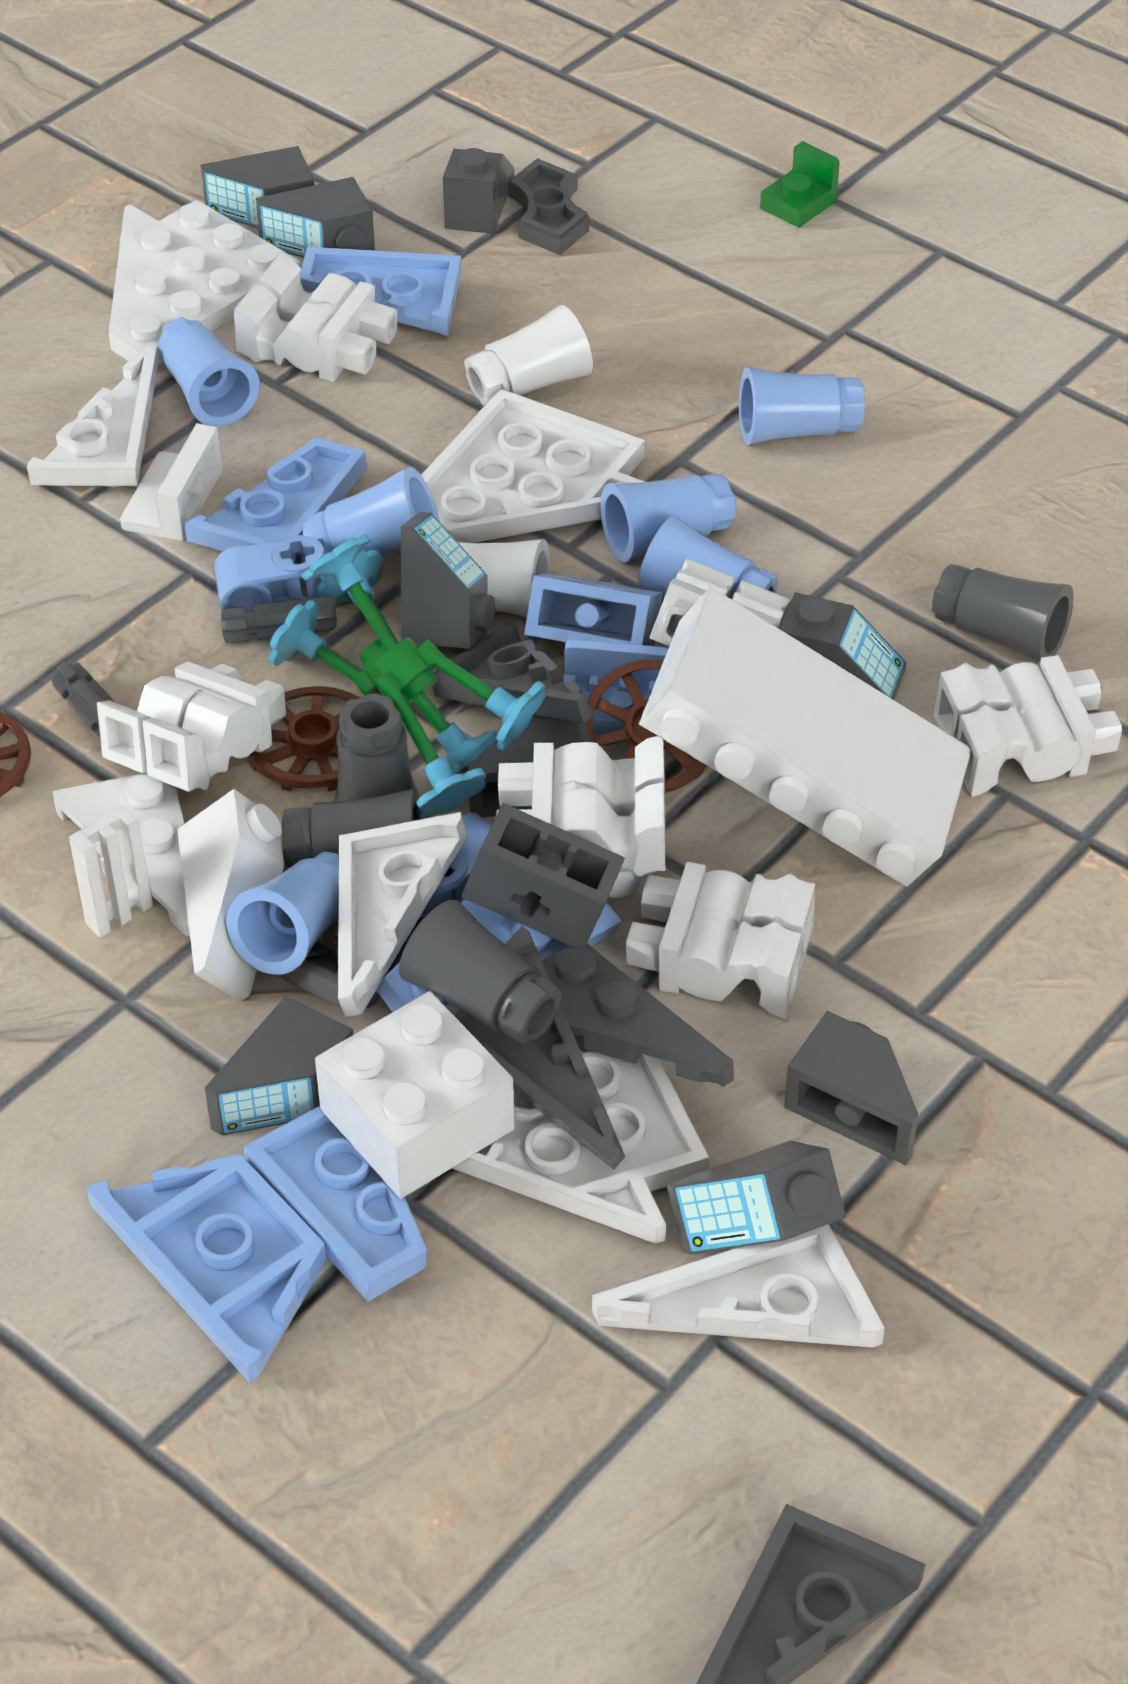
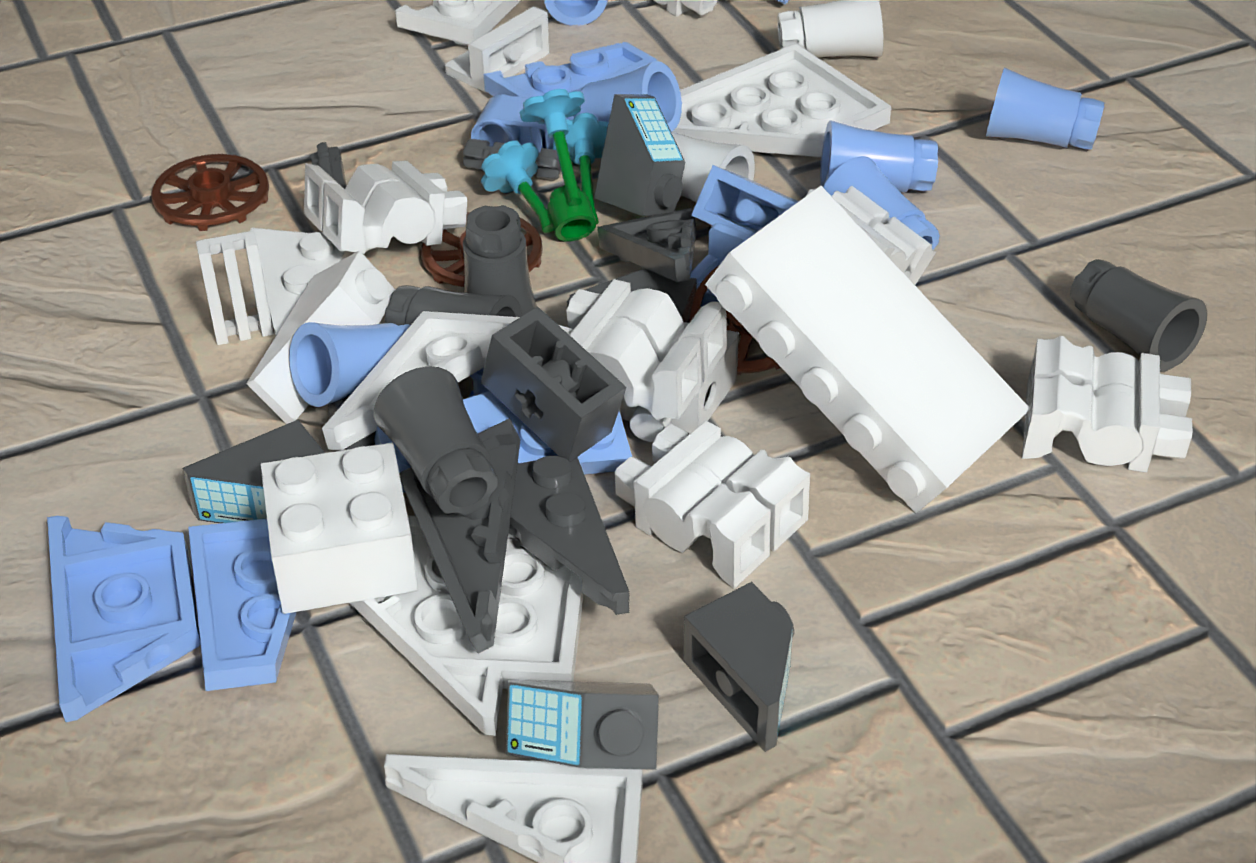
camera: 25 degrees right, 5 degrees down
(406, 677) = (550, 200): plant -> none
(845, 639) = (966, 298): slope -> none

